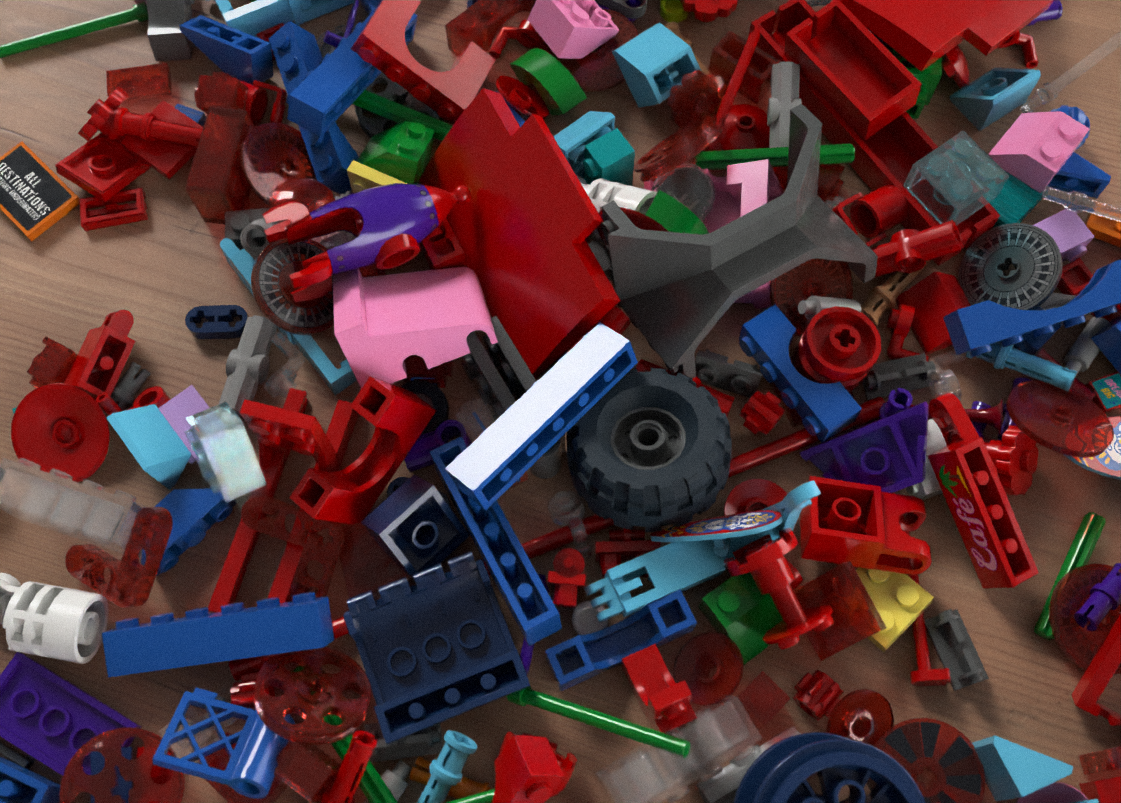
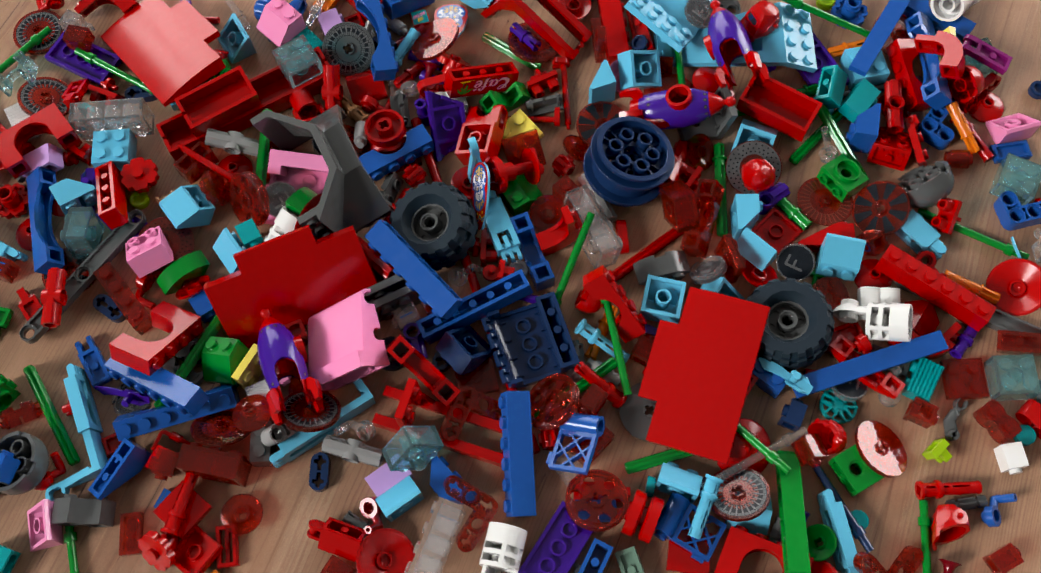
camera: 85 degrees left, 0 degrees up
(149, 207) = (235, 507): none -> clear red dish
(950, 570) = (512, 98): none -> green brick
(976, 383) = (409, 74): none -> red axle
(1010, 639) = (541, 81): none -> red hips
(1060, 683) = (564, 63): none -> red piece

